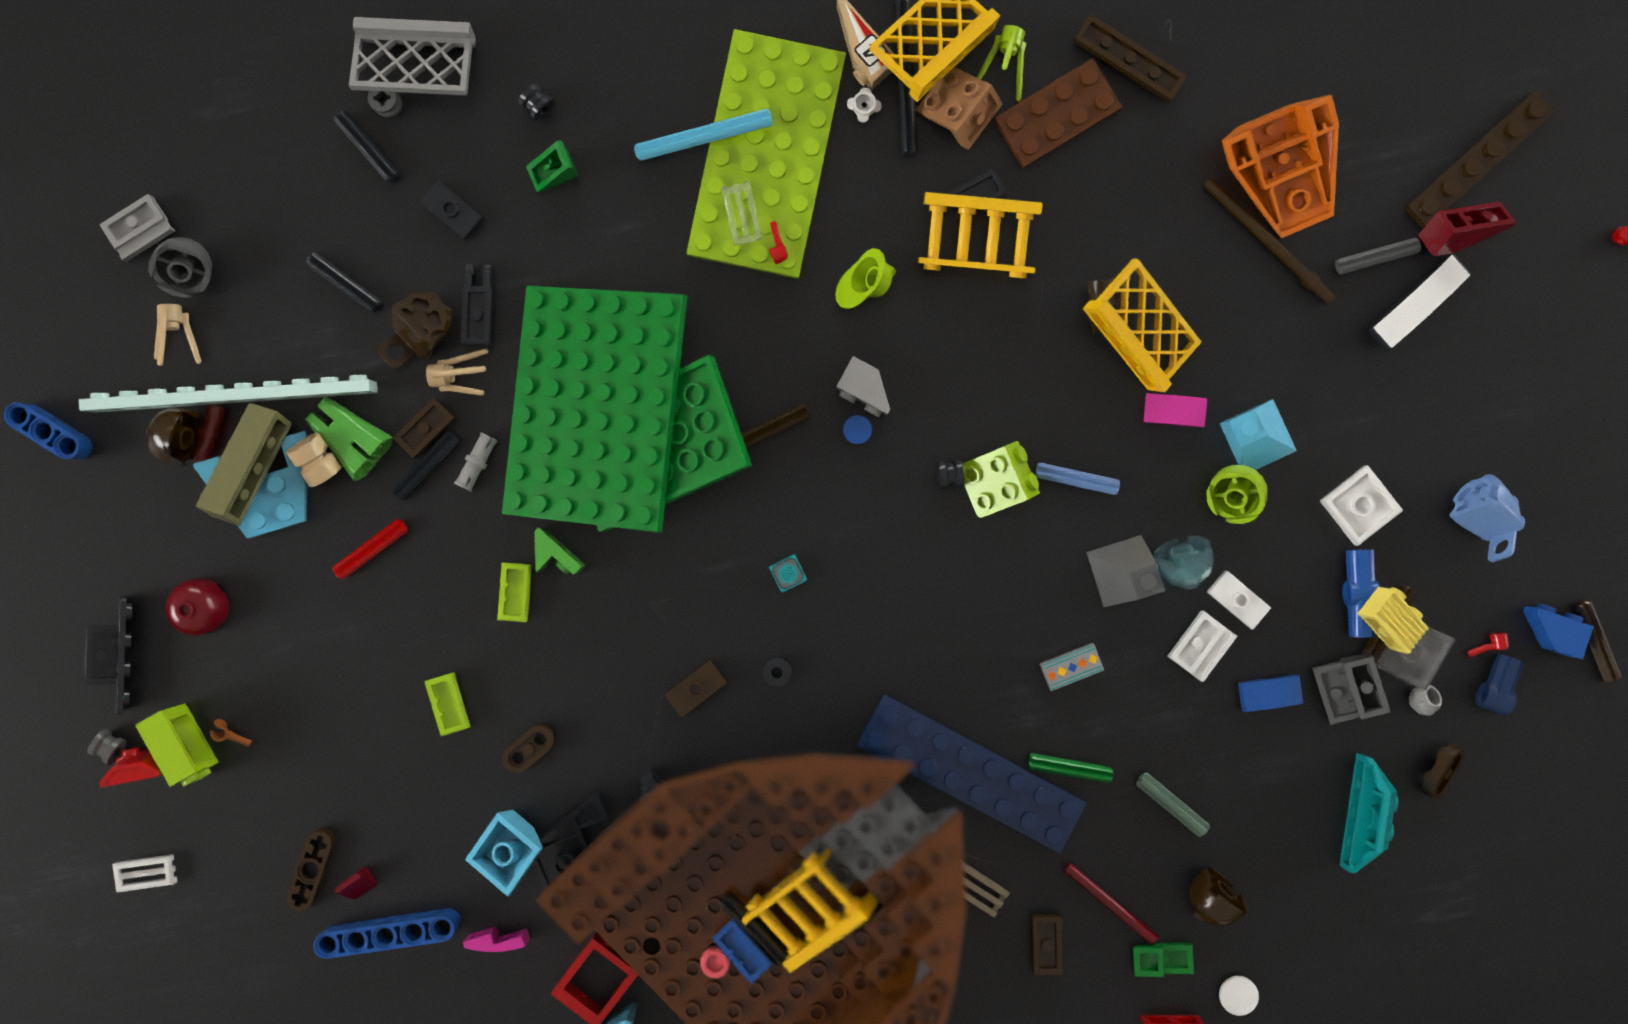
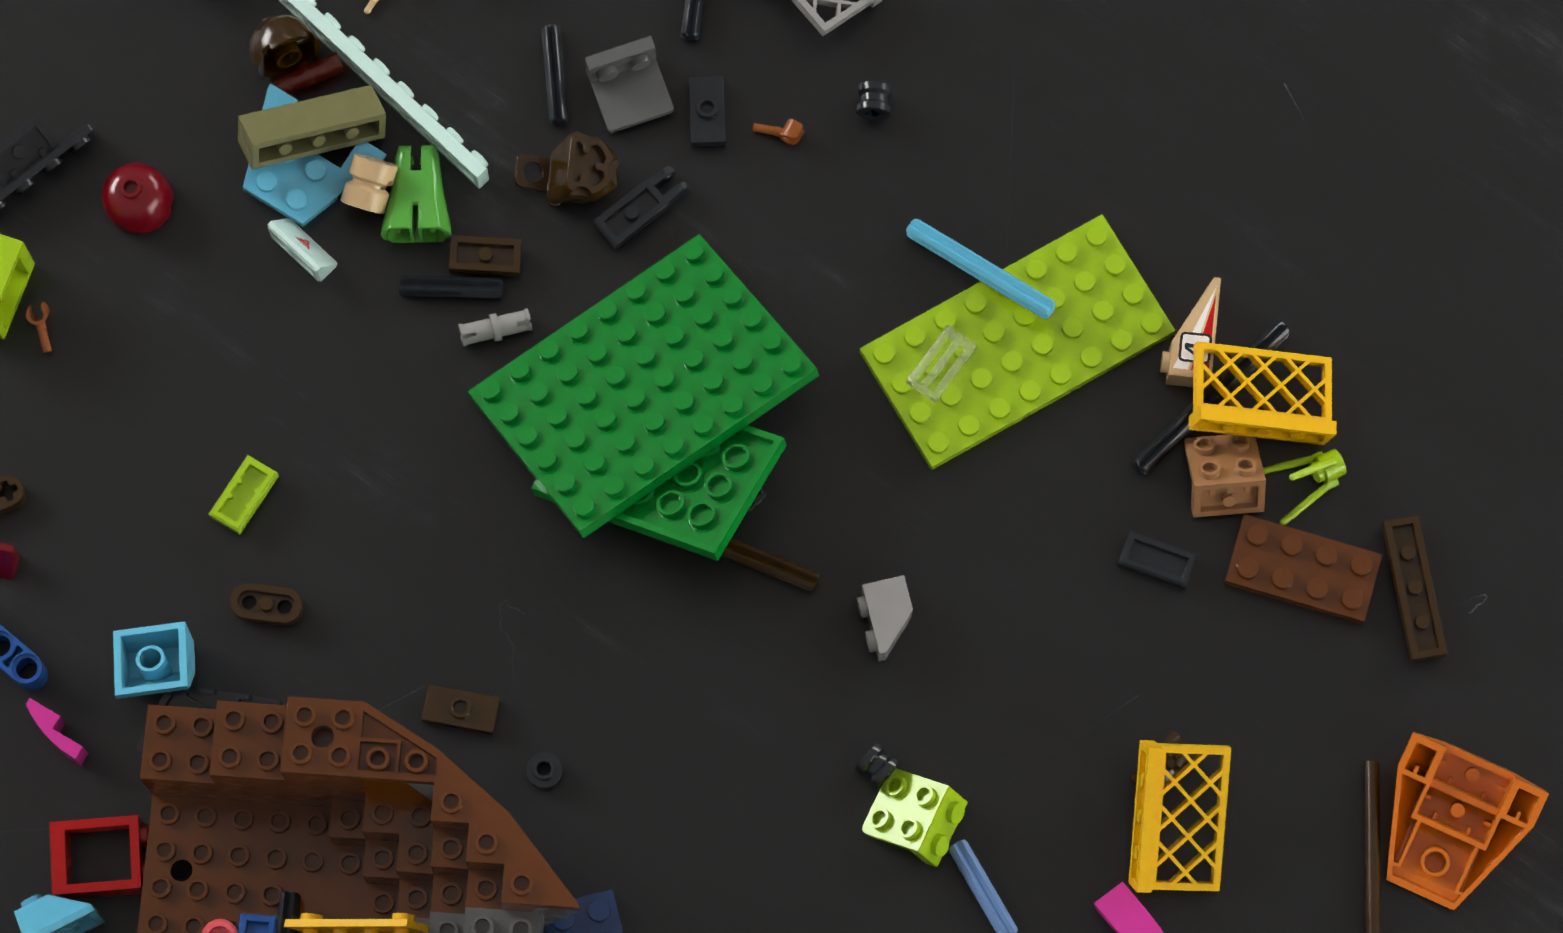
camera: 40 degrees right, 15 degrees down
(319, 533) = (302, 248): none -> light aqua slope
(370, 549) = (328, 303): red axle -> none
(391, 243) = (628, 84): none -> dark grey bracket
(442, 374) = (551, 230): tan plant -> none
(511, 173) = (789, 134): none -> dark orange hand
(514, 592) = (404, 465): lime plate -> none
(549, 547) = (473, 461): bright green slope -> none
(552, 167) = (827, 165): green slope -> none
(779, 251) = (936, 426): red hand -> none
(788, 573) = (647, 699): tile -> none
(857, 429) = (840, 644): blue tile -> none
(866, 278) = (987, 528): lime piece -> none
(867, 97) = (1151, 380): white plate -> none
(967, 207) = (1158, 587): yellow fence -> none

